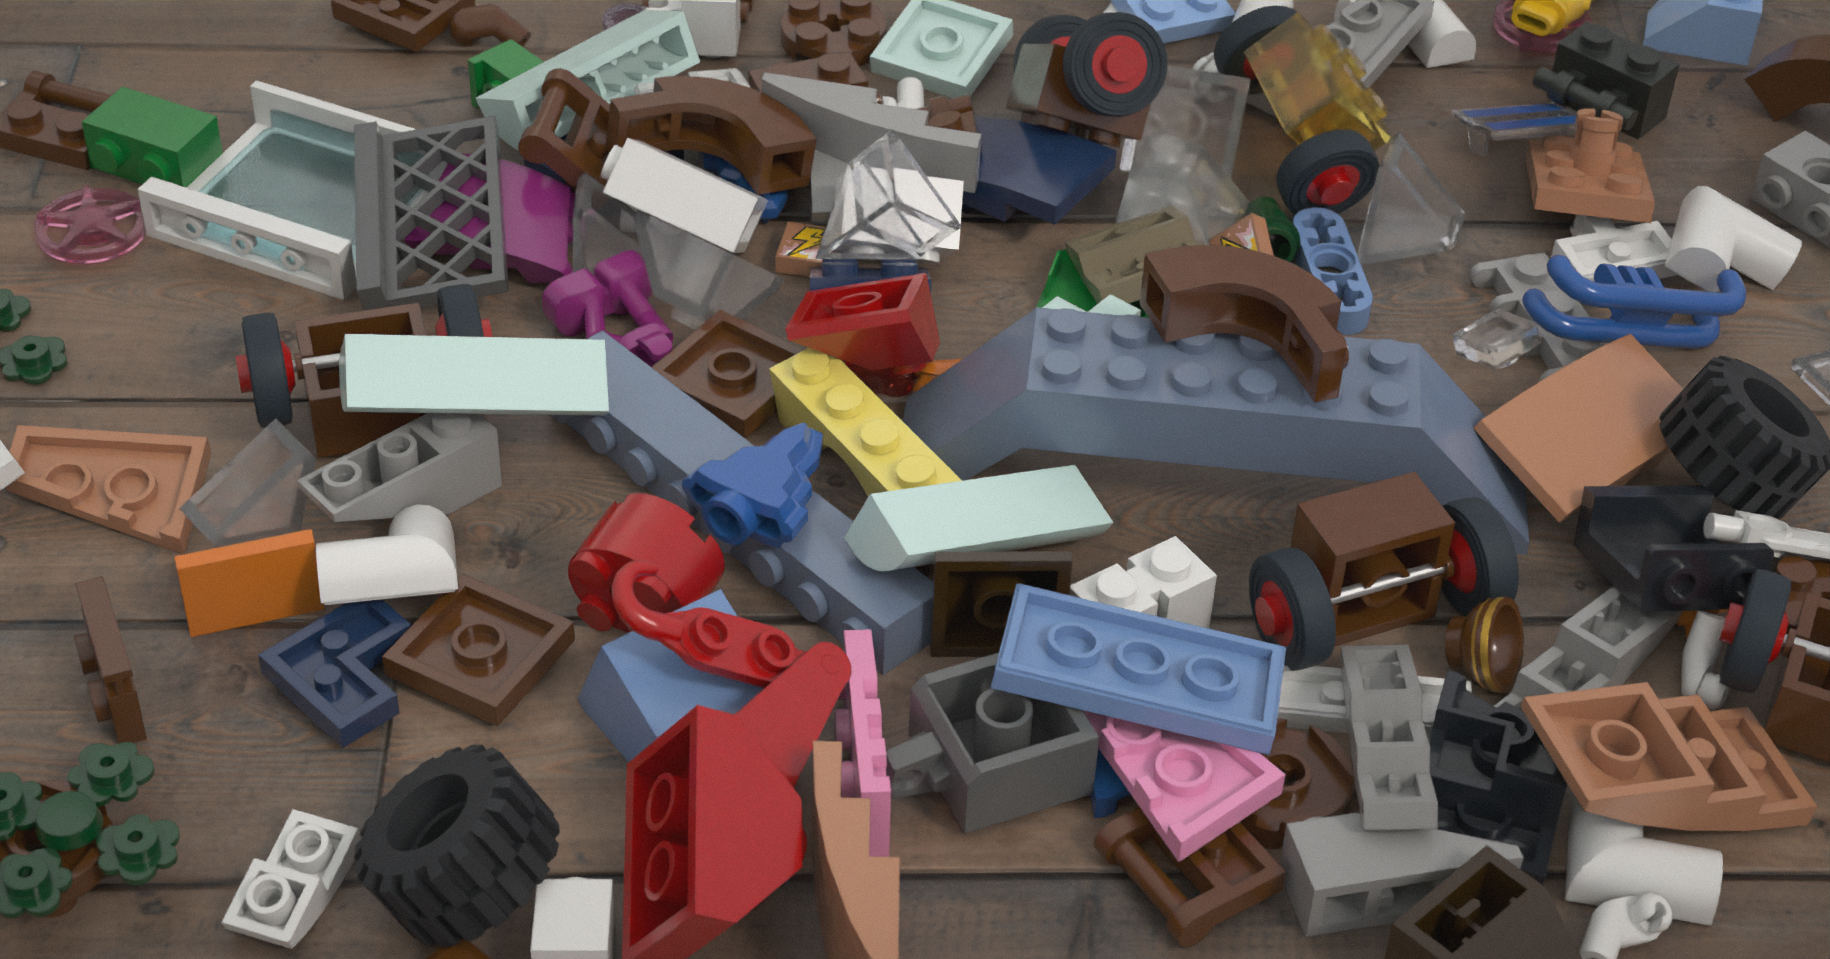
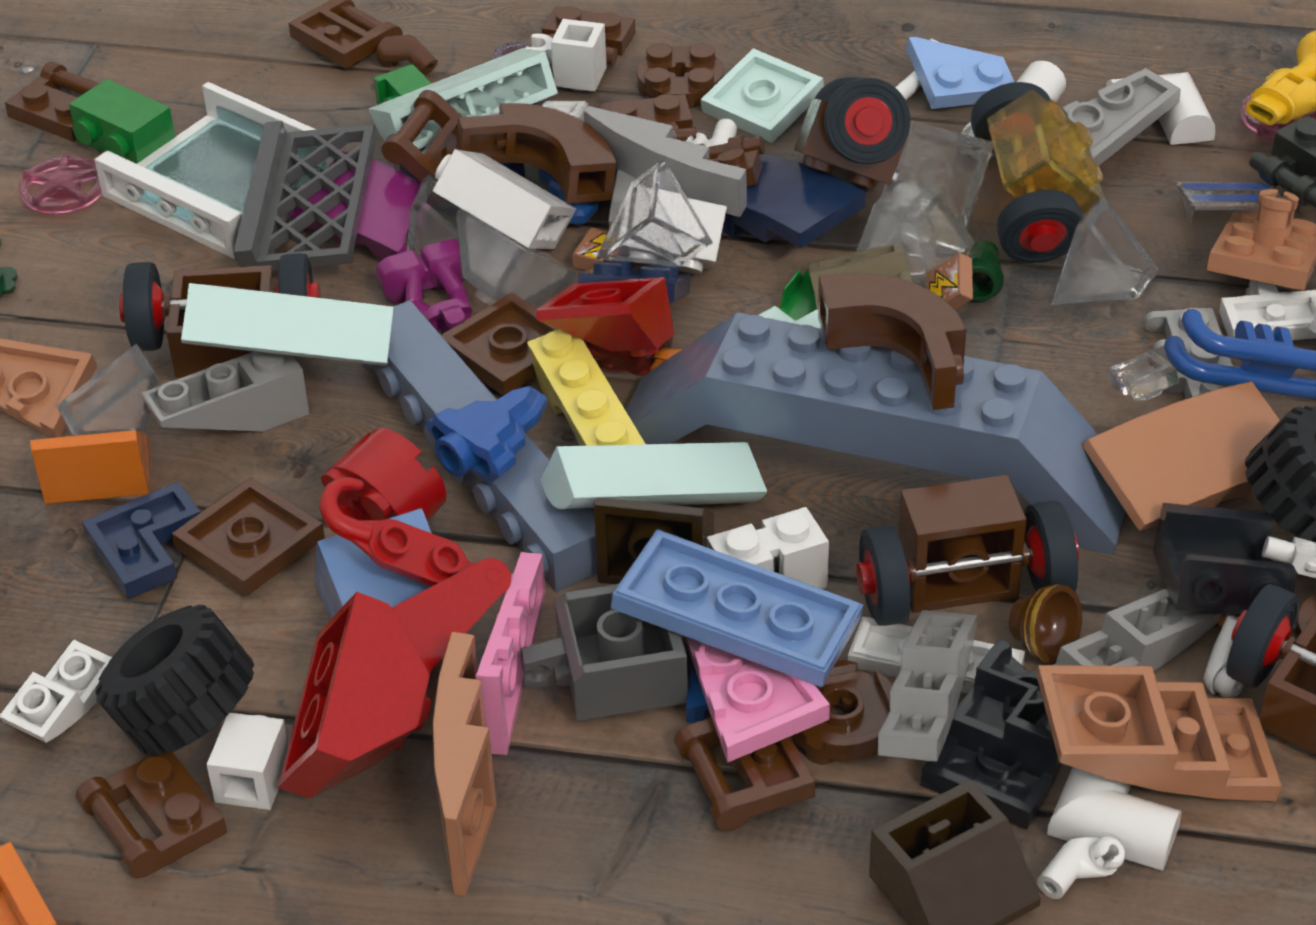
camera: 15 degrees right, 0 degrees up
(408, 562) = (209, 465): white brick -> none
(1337, 253) = (1016, 318): medium blue beam -> none
(1368, 877) = (871, 789): light grey slope -> none

